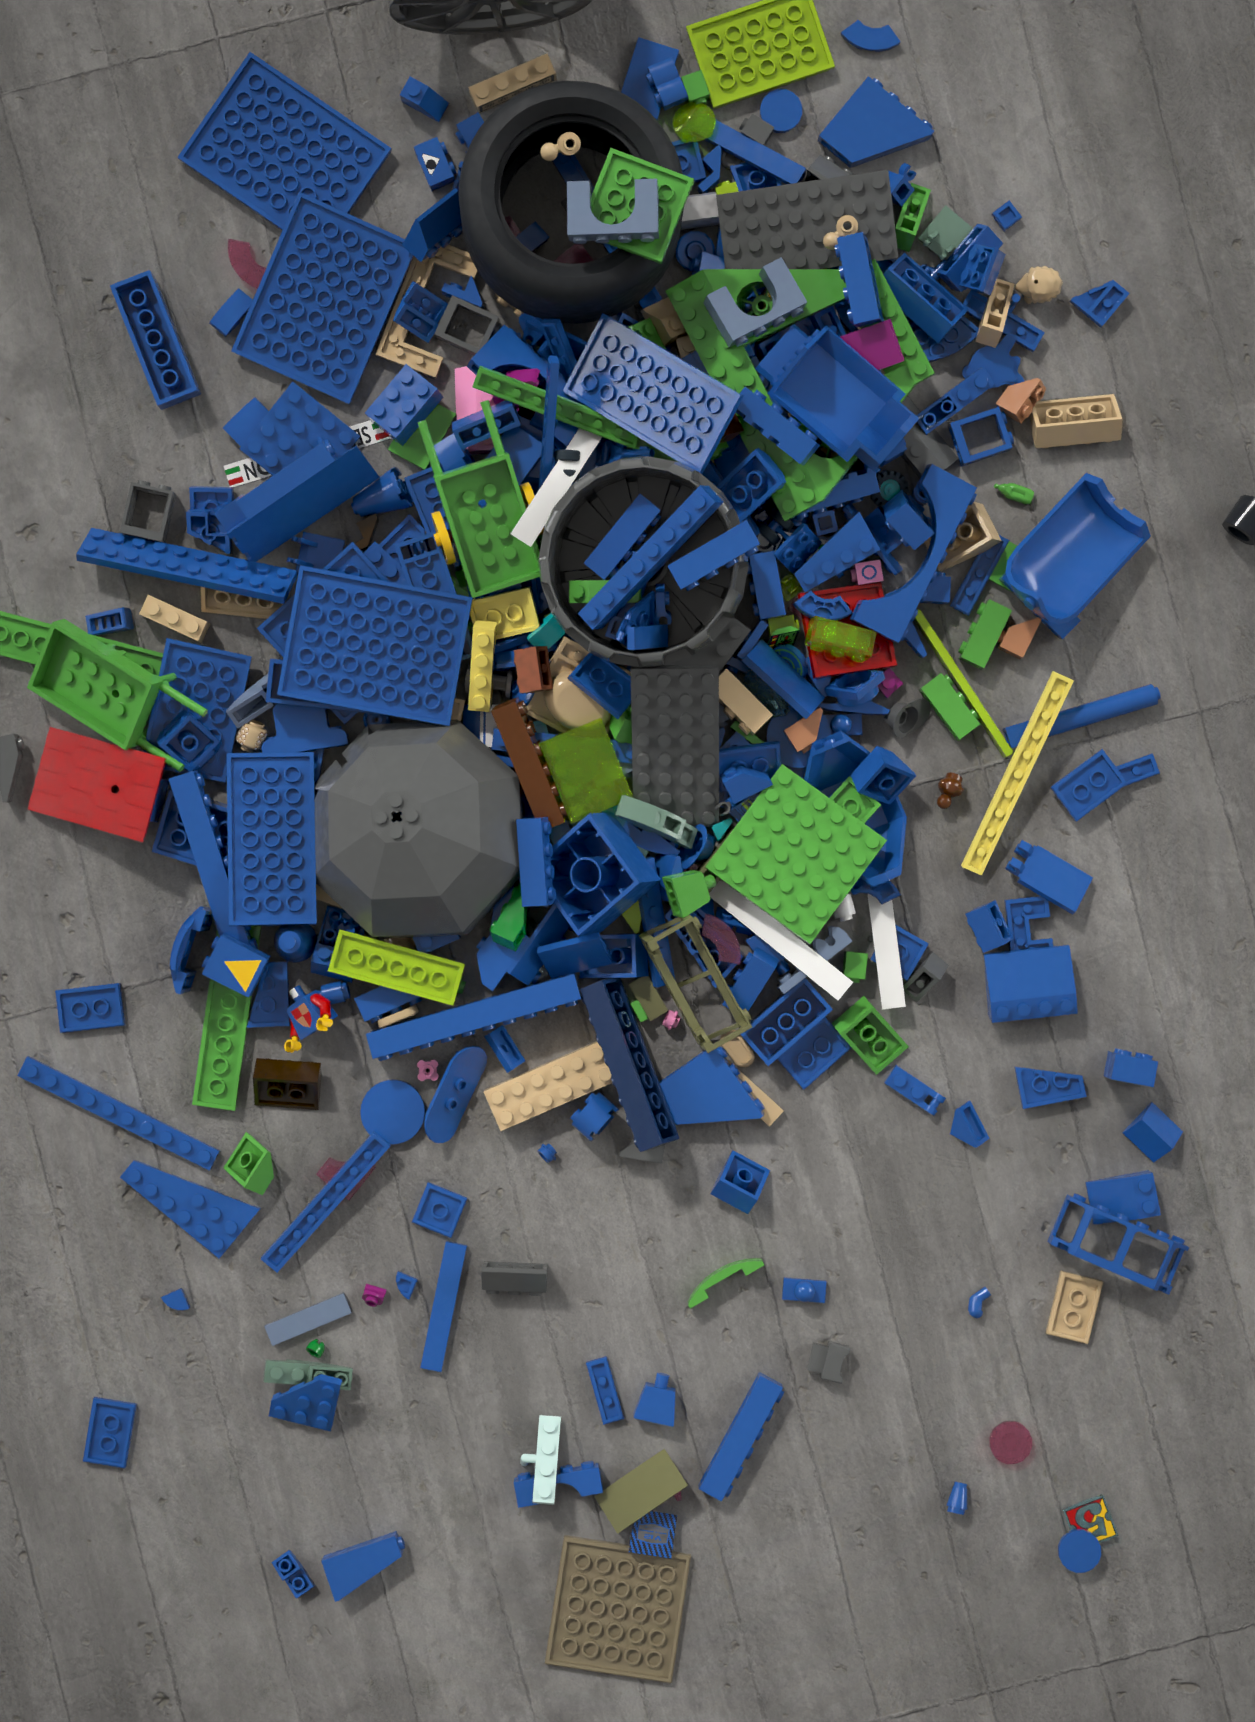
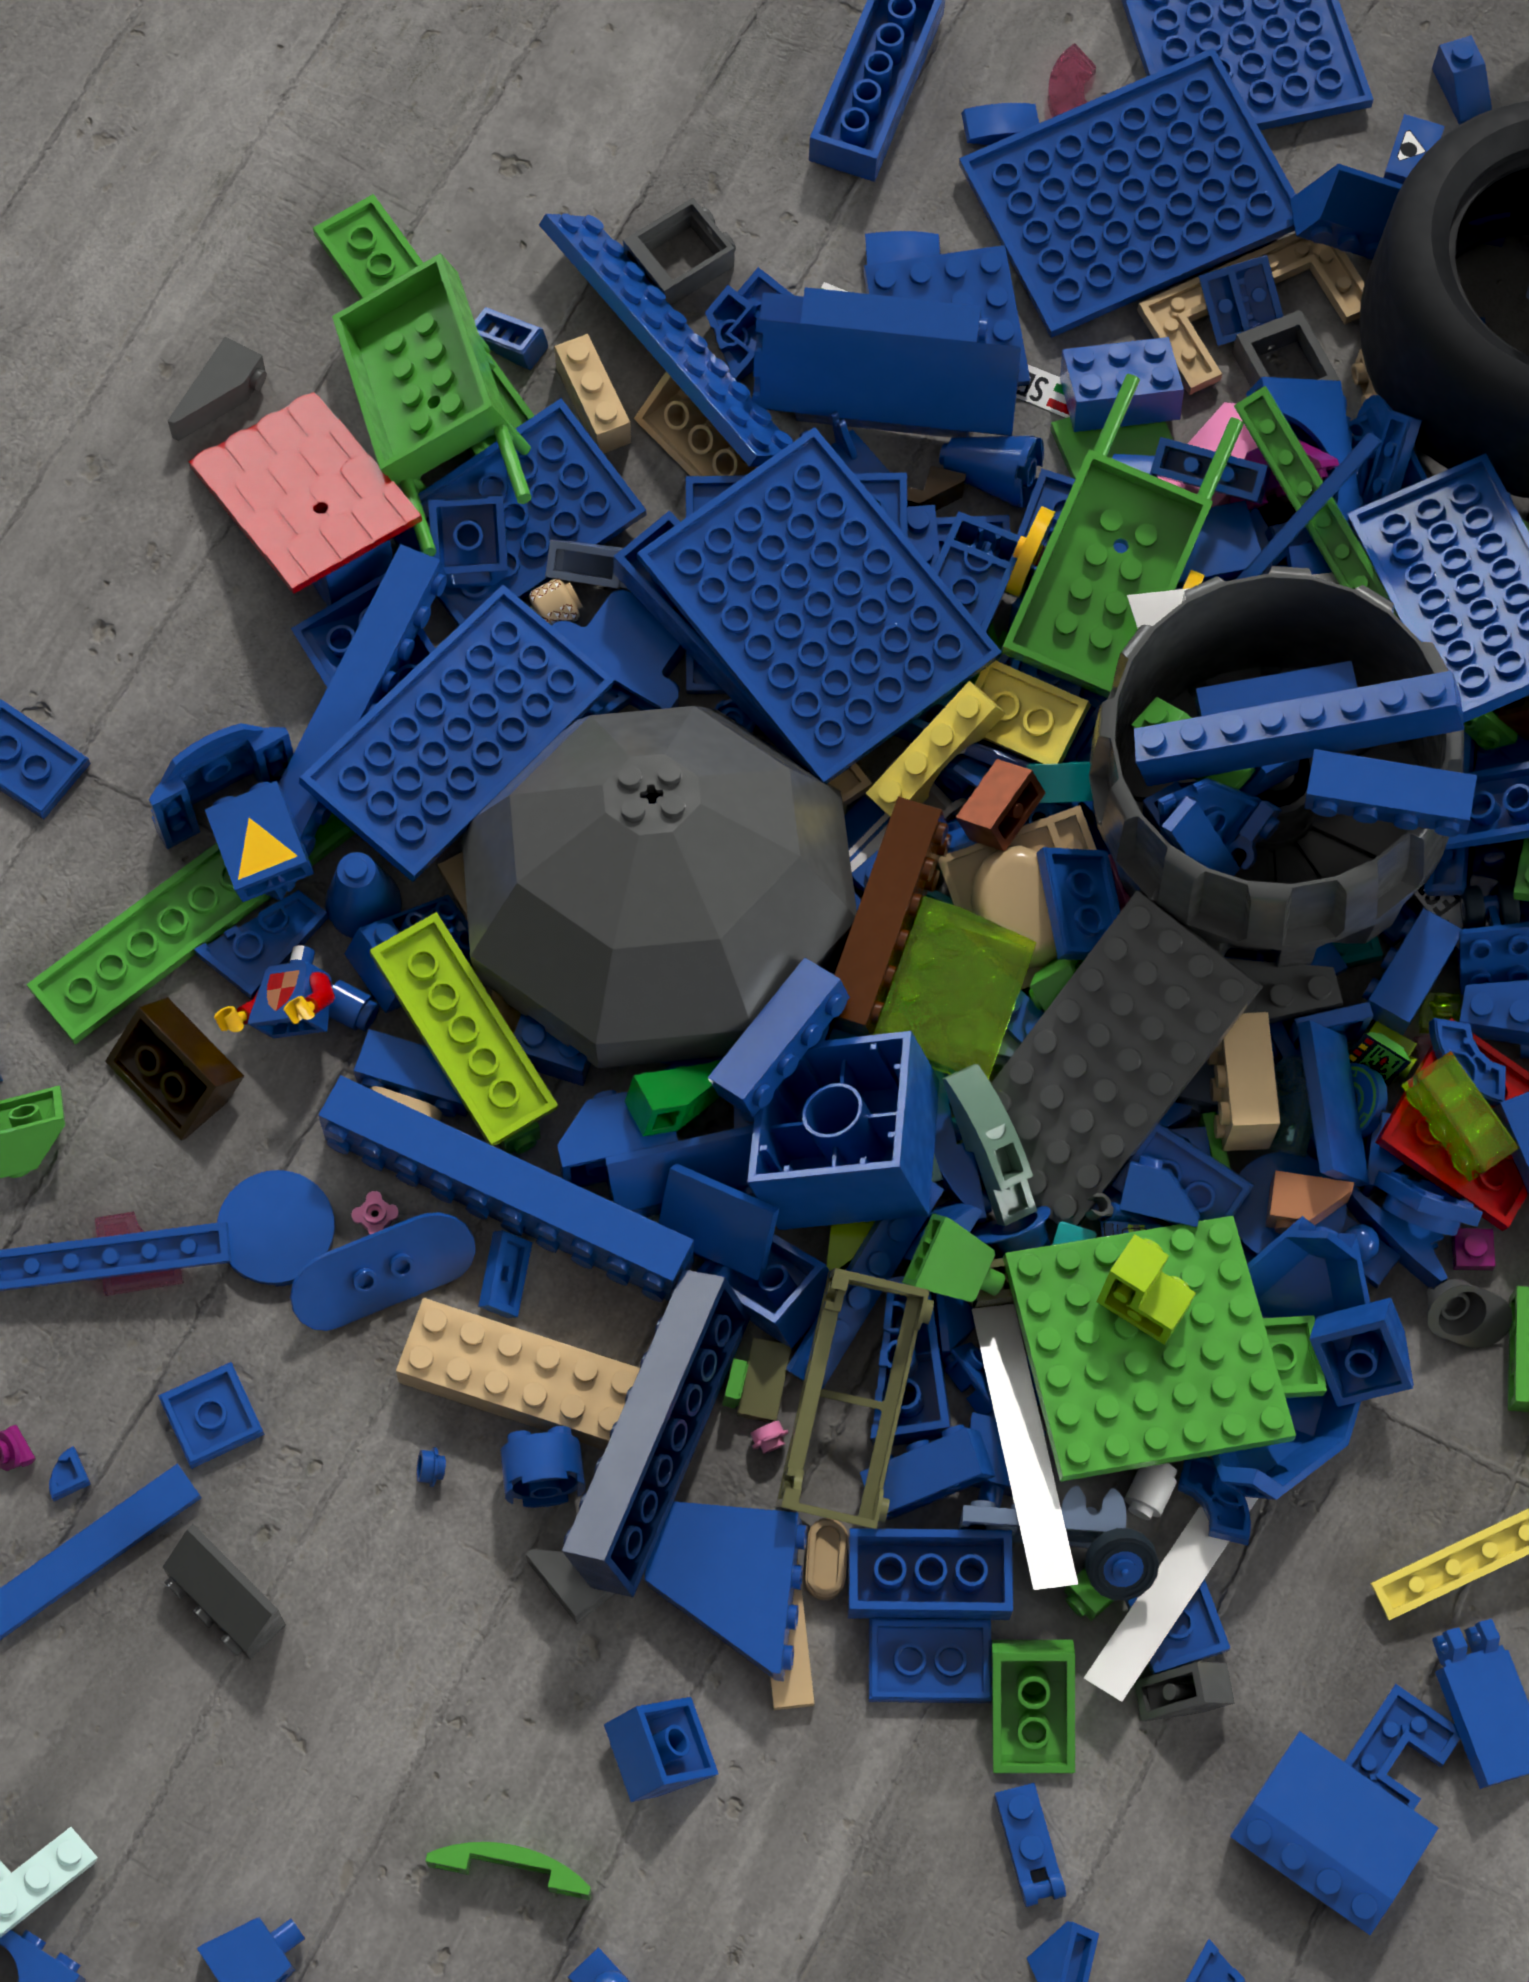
camera: 40 degrees right, 20 degrees down
(469, 295) = (1326, 327): blue slope -> none
(604, 1390) = (194, 1878): blue tile -> none
(723, 938) = (943, 1376): clear pink tile -> none
(779, 838) = (1145, 1294): none -> lime brick
(861, 954) = (1121, 1564): none -> black wheel
(949, 787) = (1444, 1460): reddish brown animal -> none
(989, 926) = (1340, 1698): blue brick -> none

